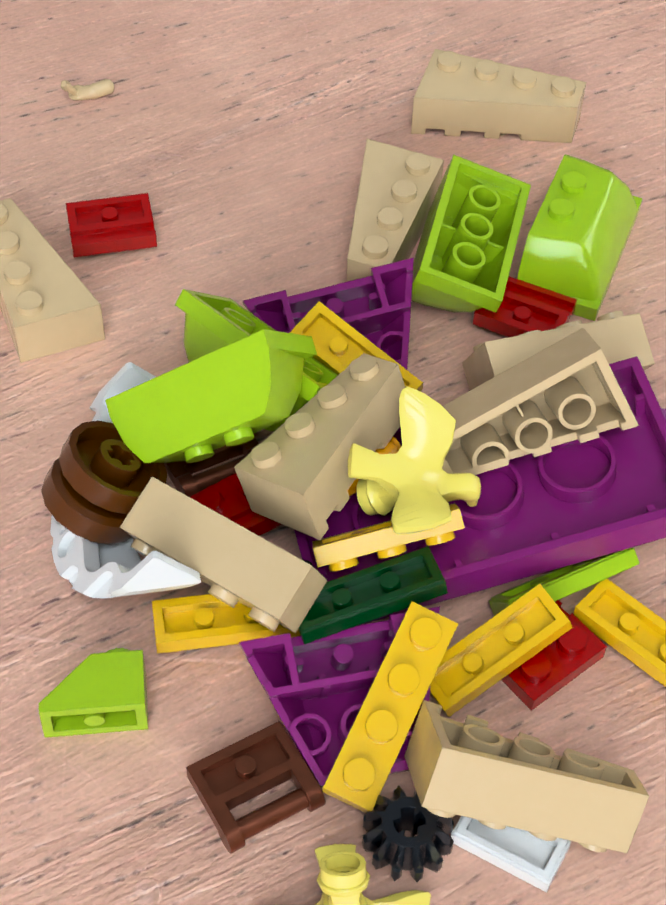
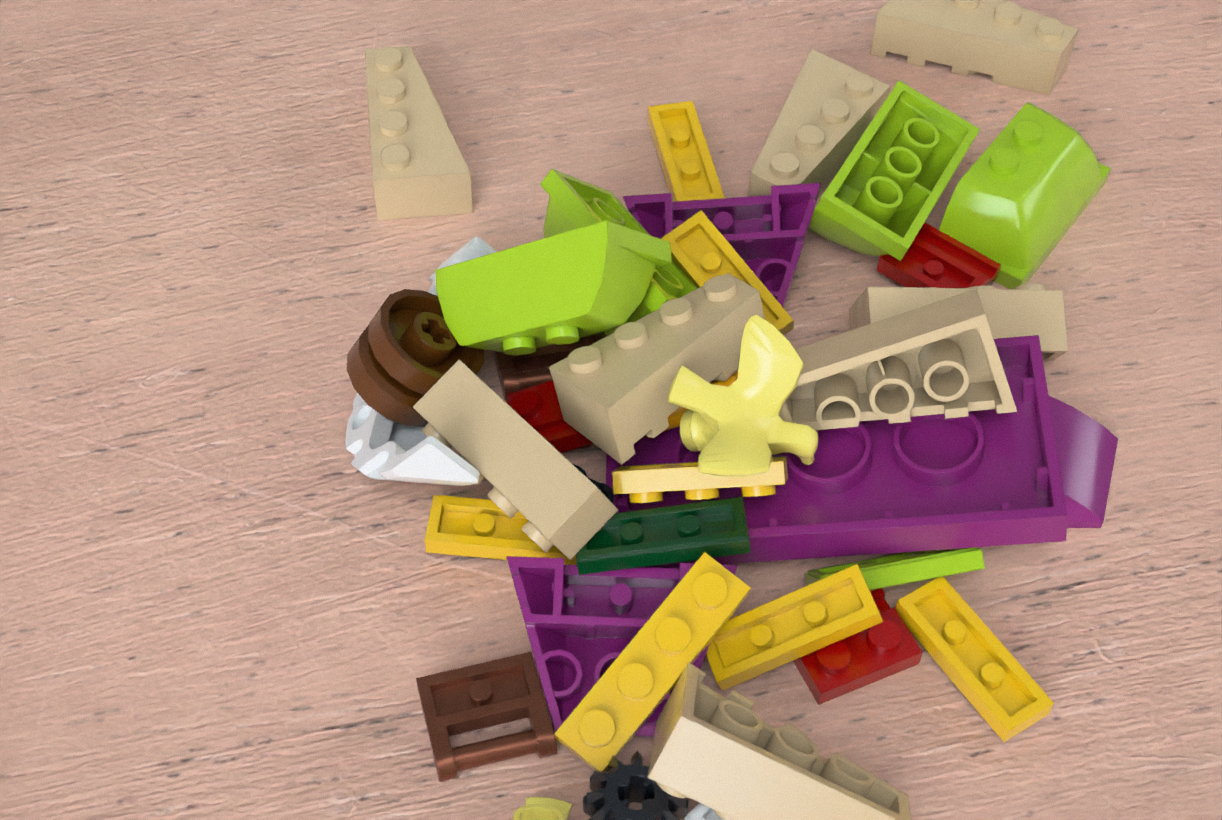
camera: 15 degrees right, 0 degrees up
(99, 696) = (348, 583): lime slope -> none
(111, 225) = (512, 94): red plate -> none
(279, 250) = (683, 152): none -> yellow plate

